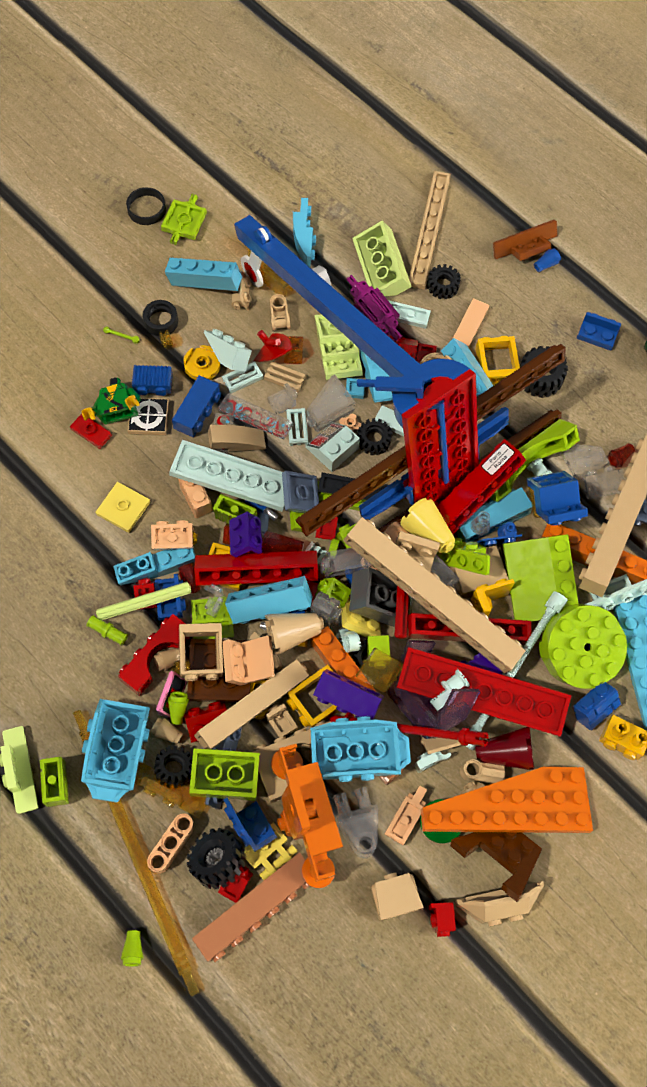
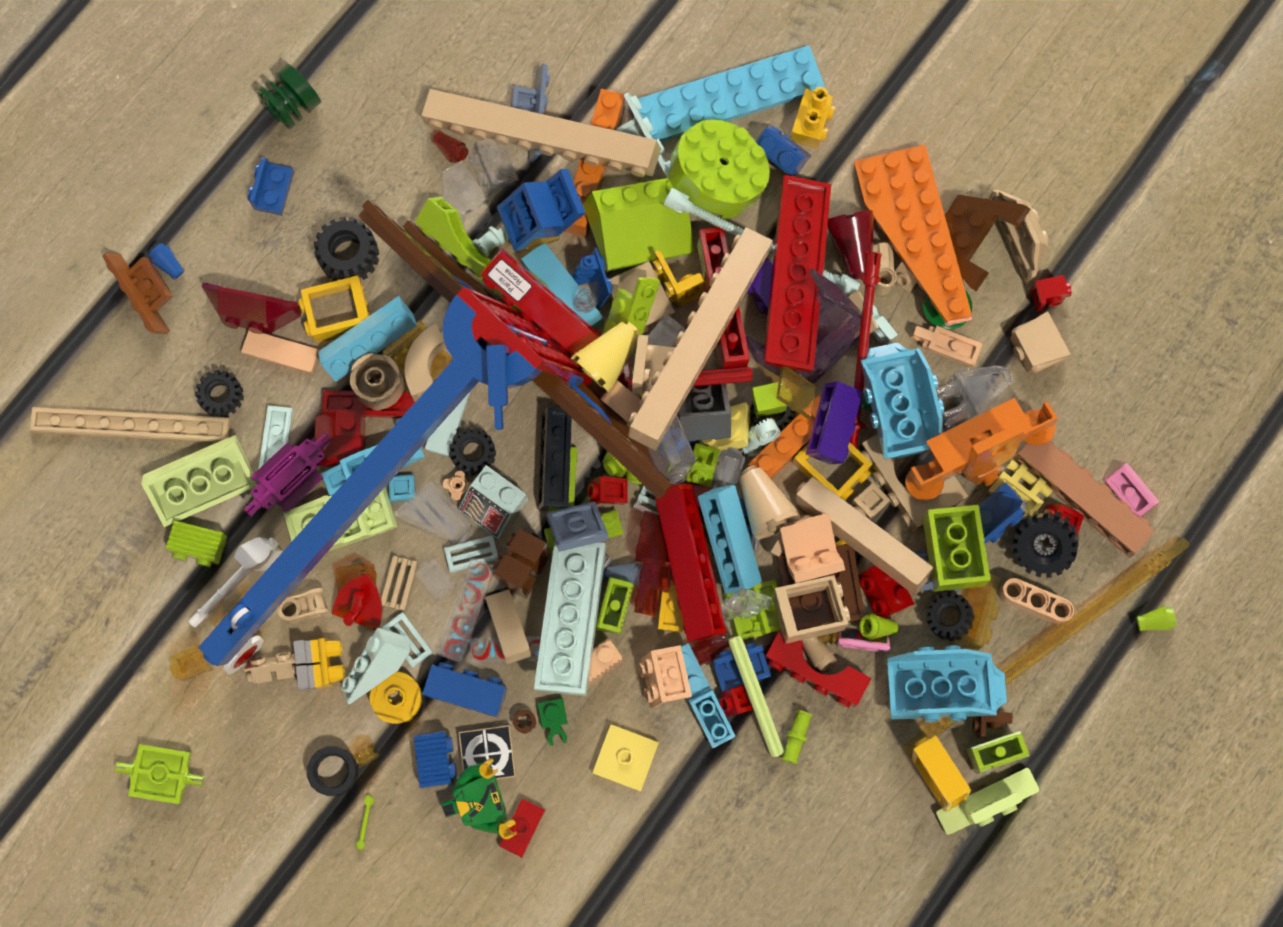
camera: 95 degrees left, 10 degrees up
(48, 728) = (940, 773): none -> yellow window
(80, 789) = (995, 722): none -> reddish brown bracket
(146, 191) = (115, 832): black tyre -> none
(162, 463) = (553, 717): none -> green plate
(165, 730) = (907, 635): tan cone -> none
(166, 449) = (522, 713): none -> reddish brown bush
(203, 274) = (258, 721): medium azure brick -> none
(229, 317) = (318, 653): none -> yellow hips
(245, 534) = (654, 581): dark purple bracket -> none
(251, 956) = (1131, 490): none -> bright pink slope
(273, 442) = (523, 556): none -> reddish brown piece
(303, 233) = (172, 595): medium azure slope -> none
(337, 255) = (196, 543): none -> lime brick
(454, 682) = (804, 306): light aqua connector -> none
(503, 304) = (250, 310): none -> dark red wedge

